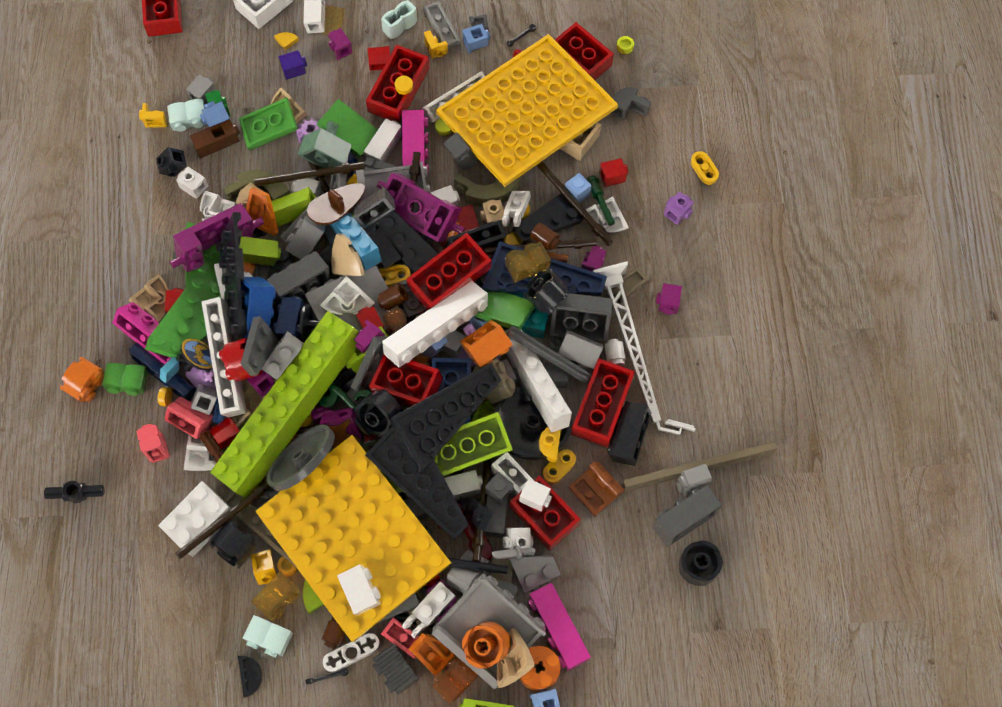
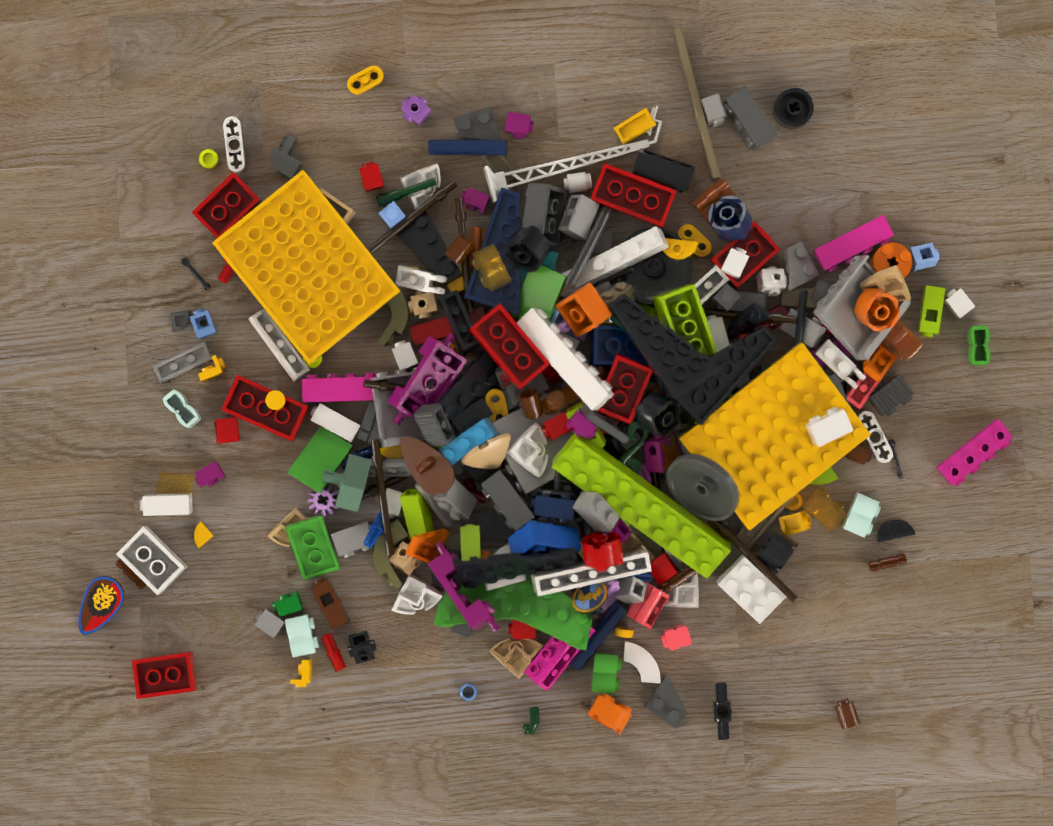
camera: 85 degrees left, 20 degrees up
(56, 621) = (847, 713): none -> reddish brown brick
(80, 312) = (534, 721): none -> dark green arm
(88, 439) = (666, 703): none -> dark grey wing
(118, 252) = (468, 685): none -> medium blue piece
(134, 416) = (643, 662): none -> white tile
(161, 145) = (333, 652): none -> red axle
(169, 370) = (603, 626): medium azure tile -> none
(192, 182) = (383, 624): white brick -> none
(214, 113) = (308, 603): medium blue brick -> none
(215, 666) = (887, 562): none -> reddish brown axle
(258, 347) = (592, 533): dark grey wing -> none
(273, 155) = (351, 539): none -> light grey brick
(275, 167) = (375, 531): none -> blue axle
(293, 64) = (237, 524): dark purple brick -> none
(461, 151) = (355, 340): dark grey brick -> none
(515, 552) = (788, 282): light grey piece -> none
(581, 492) = (730, 218): none -> dark blue brick
(645, 253) = (468, 147): none -> dark blue brick
(653, 67) = (231, 159): none -> white beam
(666, 266) = (478, 125): none -> dark grey wing
(673, 407) = (635, 126): none -> yellow tile

